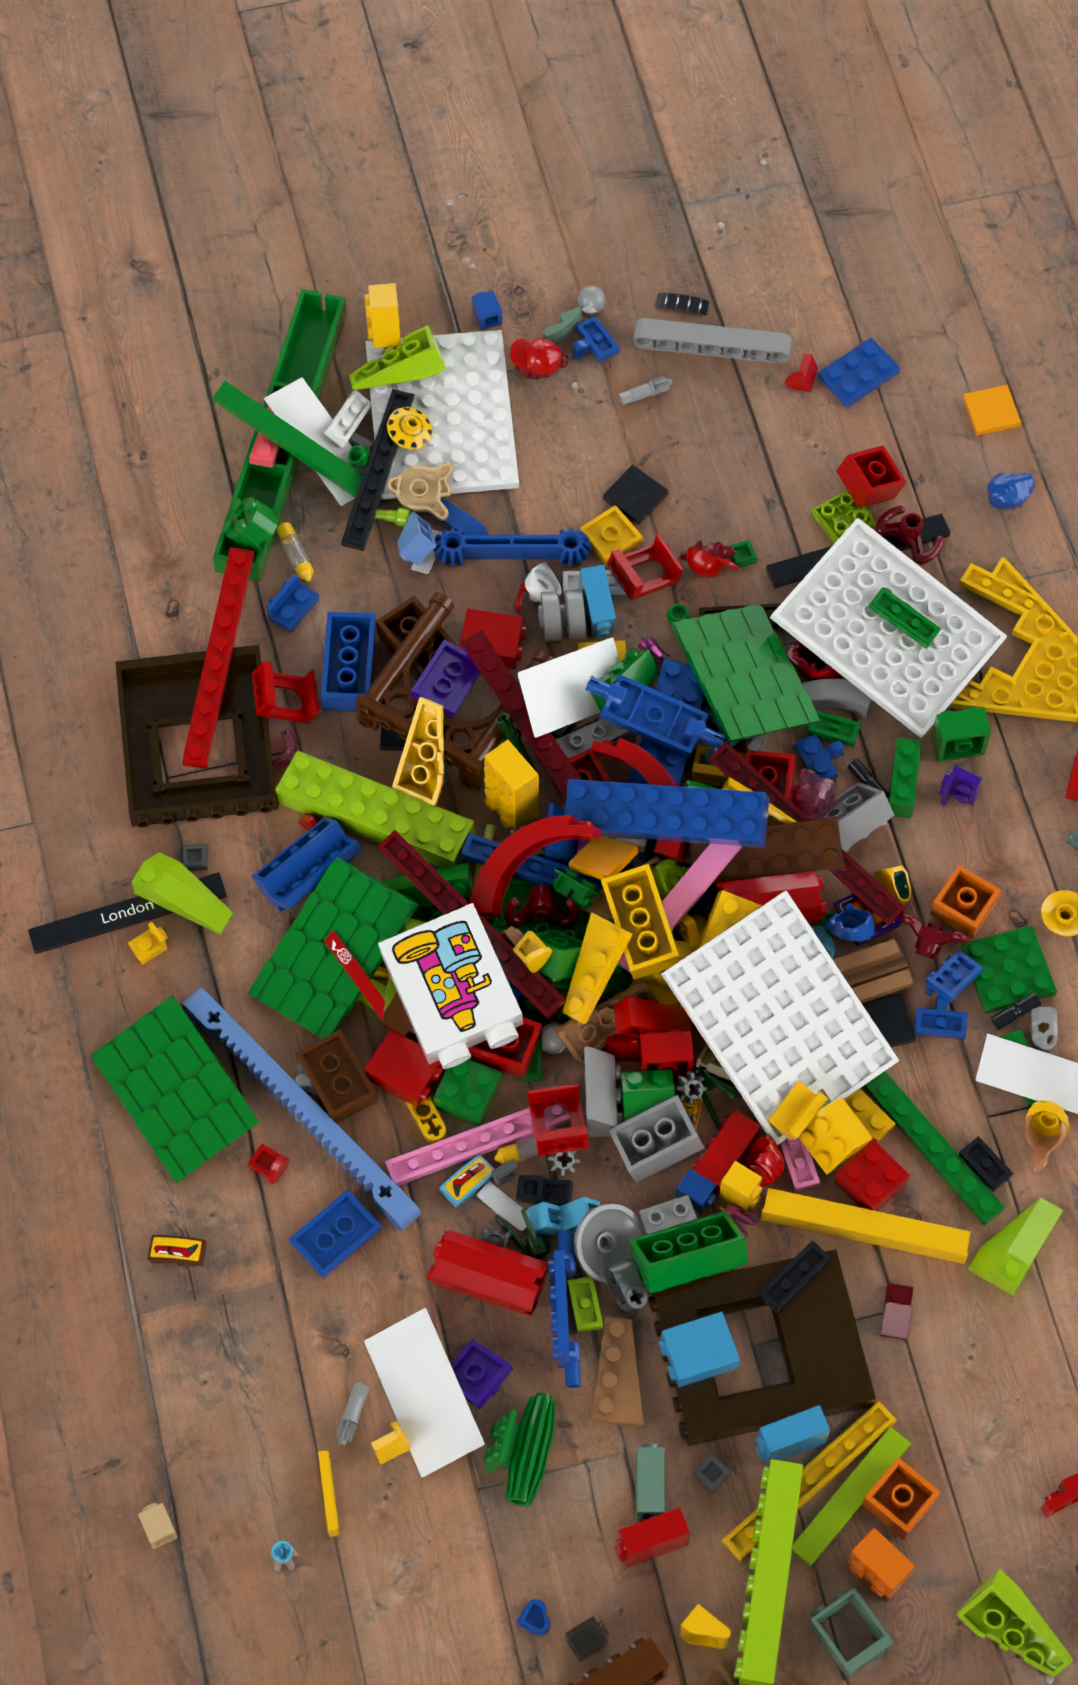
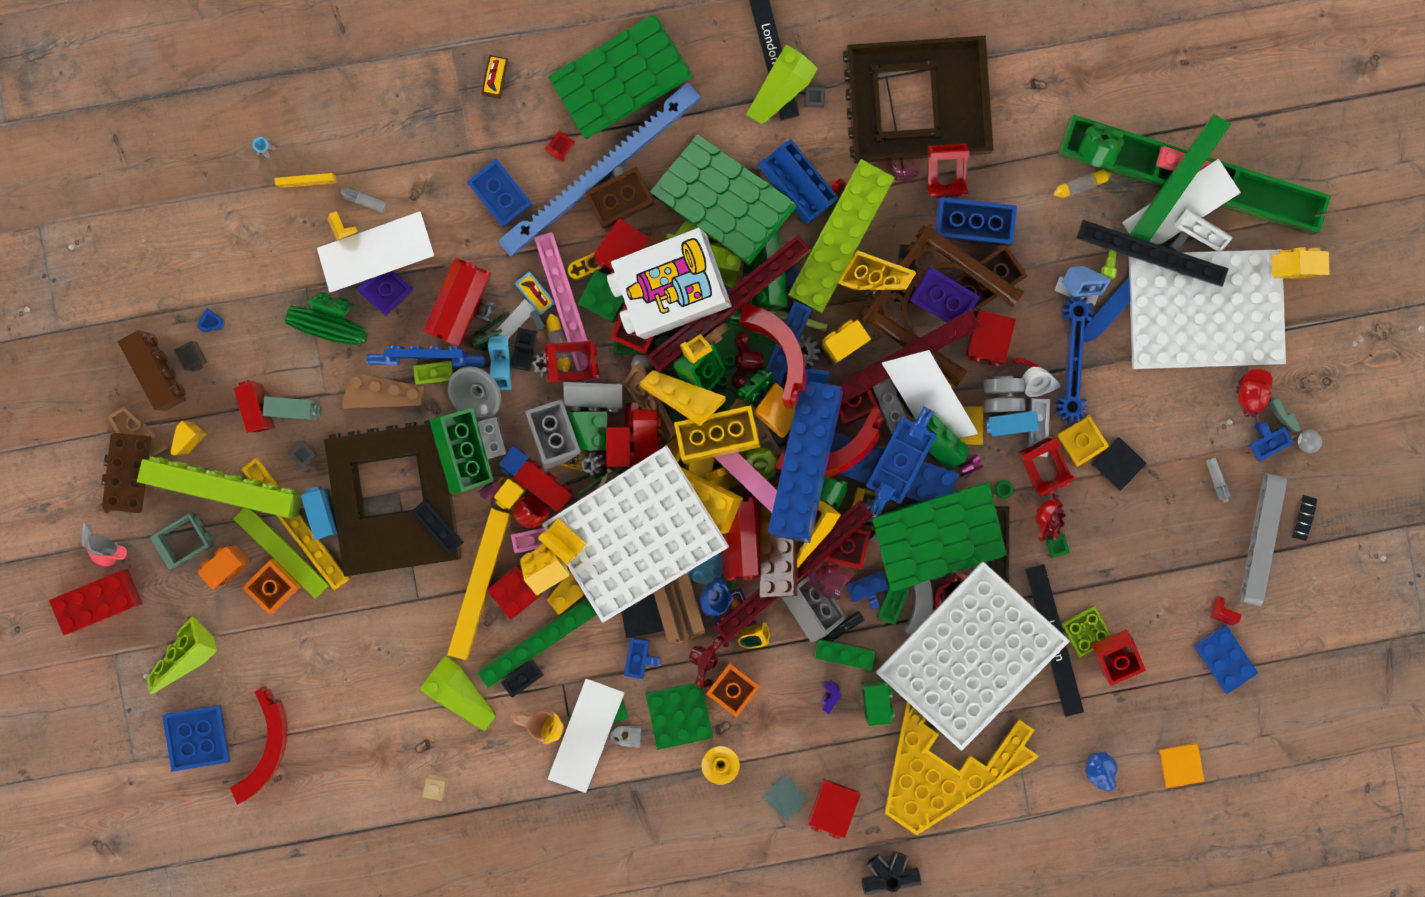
camera: 95 degrees right, 25 degrees up
(149, 943) = (742, 60): yellow bracket -> none
(157, 1525) = (291, 58): tan brick -> none
(218, 658) = (981, 117): red plate -> none
(291, 604) = (1033, 179): blue bracket -> none
(356, 973) = (696, 214): red sticker -> none
(359, 455) = (1166, 238): green plate -> none
(406, 435) = (1182, 274): yellow dish -> none
(412, 360) = (1253, 282): lime wedge -> none
(422, 488) = (1131, 289): tan tile -> none
(486, 310) = (1306, 352): blue brick -> none
(513, 735) = (889, 347): dark green pin -> none
(624, 1283) = (442, 403): dark grey piece -> none
(699, 1349) = (384, 451): dark azure brick -> none
(897, 1311) = (415, 600): slope -> none
(904, 617) = (977, 669): green tile -> none
(909, 532) = (1059, 681): dark red piece -> none
(953, 976) = (669, 672): blue bracket -> none
(1012, 1013) = (642, 716): black piece -> none

